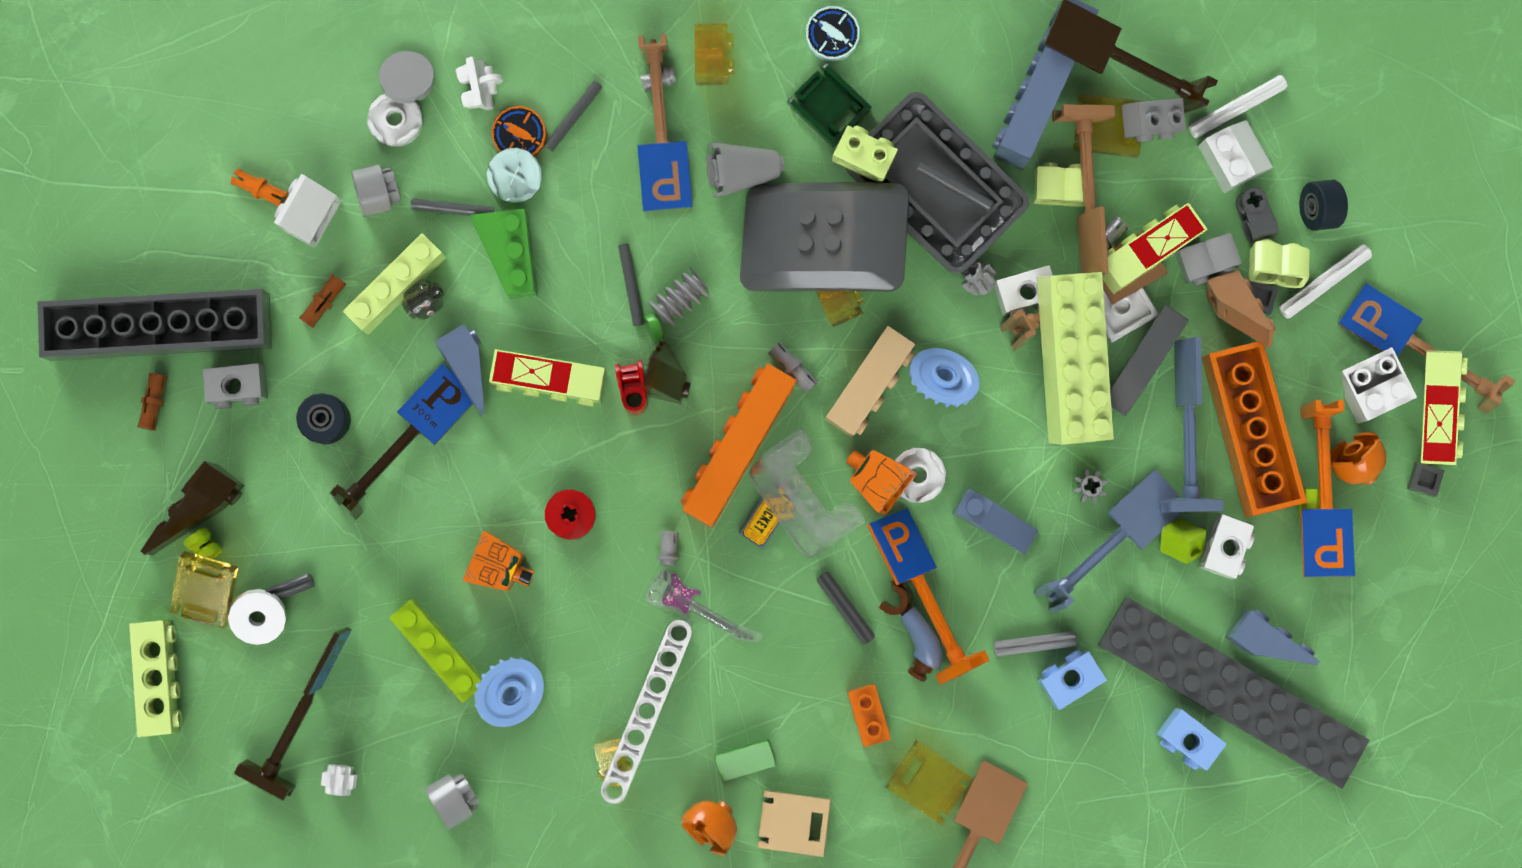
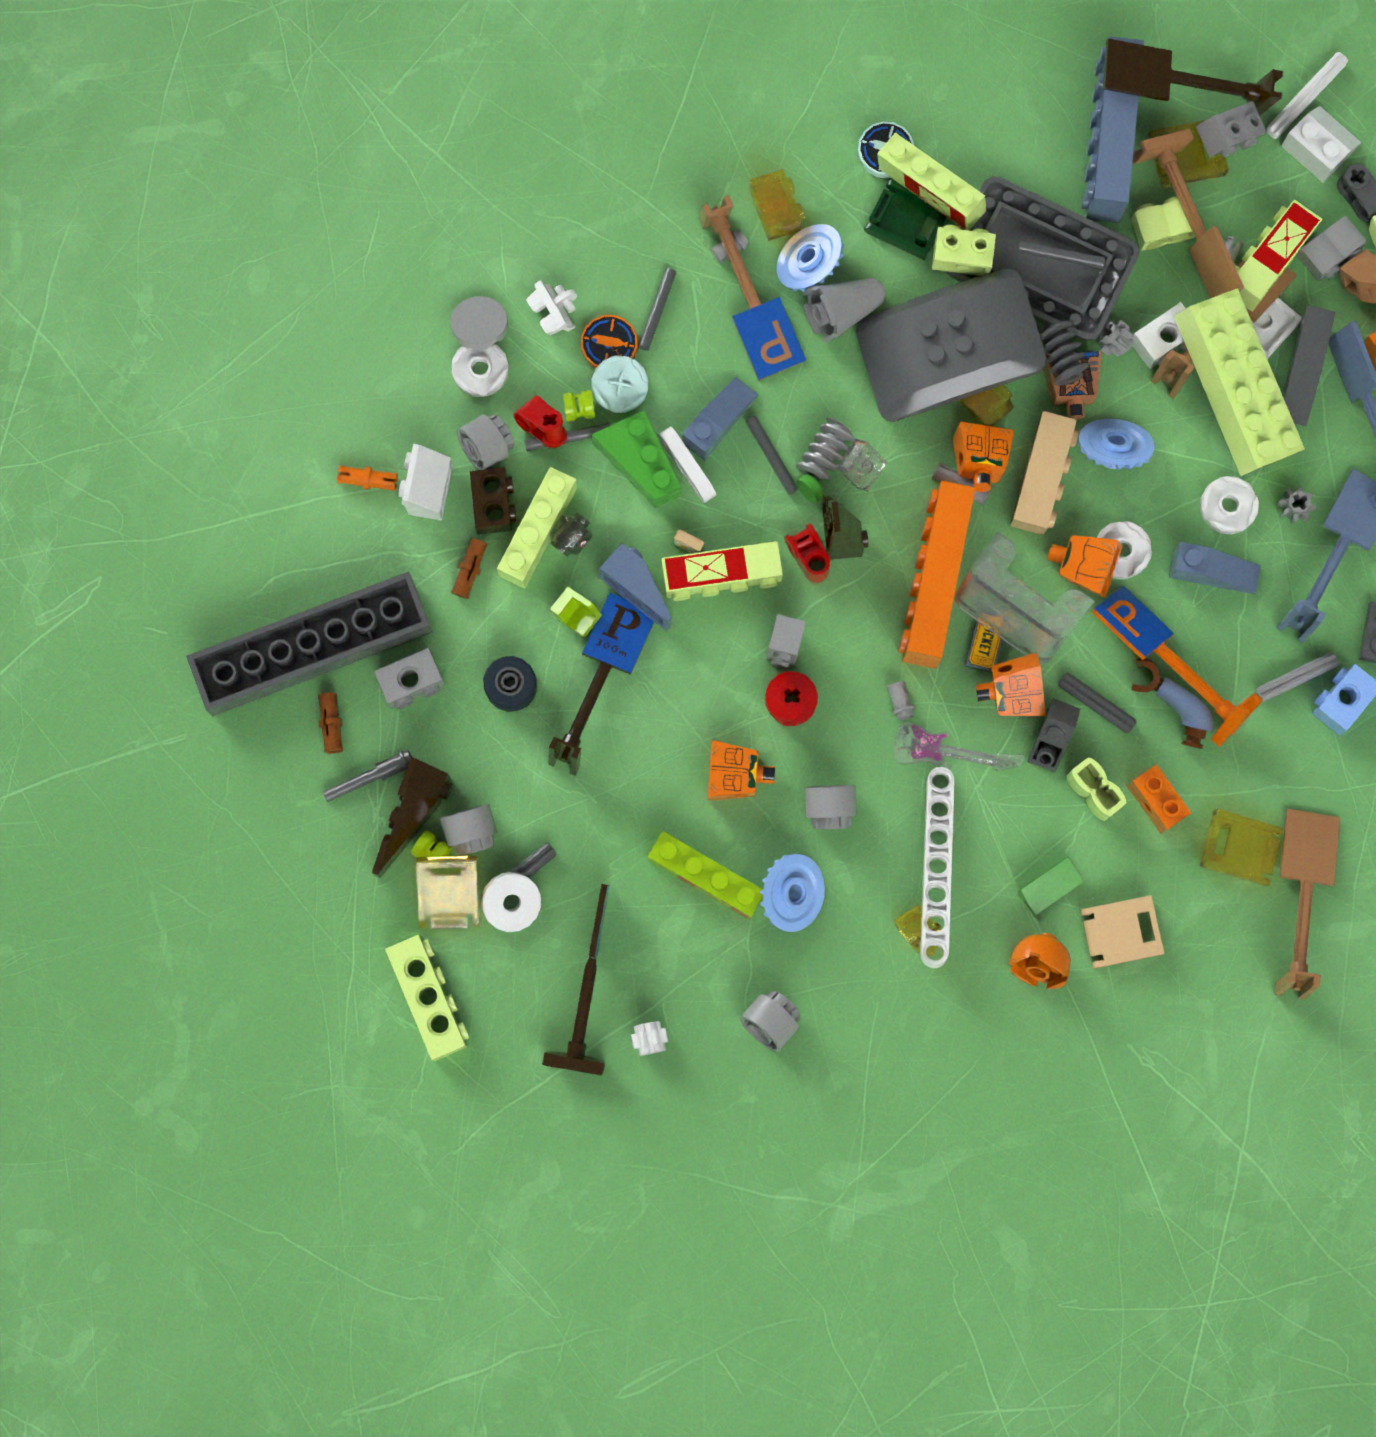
camera: 15 degrees left, 5 degrees down
(184, 459) = (382, 770): none -> dark grey pin
(241, 539) = (469, 829): none -> light grey piece
(354, 245) = (487, 501): none -> dark brown brick
(403, 372) = (575, 612): none -> lime panel
(431, 188) = (542, 422): none -> red piece
(470, 183) = (585, 405): none -> lime wheel
(527, 342) = (688, 542): none -> tan tile
(550, 269) = (687, 465): none -> white beam
(571, 624) = (830, 806): none -> light grey piece
(580, 462) = (785, 641): none -> light grey brick
(594, 235) = (718, 418): none -> sand blue slope
(707, 321) = (861, 464): none -> clear piece
(725, 113) = (809, 257): none -> light blue gear
(773, 572) = (1015, 687): none -> orange torso
(795, 625) = (1054, 735): none -> dark grey slope
(812, 680) = (1101, 795): none -> yellowish green brick
(818, 347) = (981, 453): none -> orange torso
(859, 80) = (931, 182): none -> yellowish green brick
(922, 278) = (1062, 352): none -> dark grey piece
(927, 305) = (1078, 393): none -> nougat torso
(1046, 465) = (1222, 520): none -> white tile

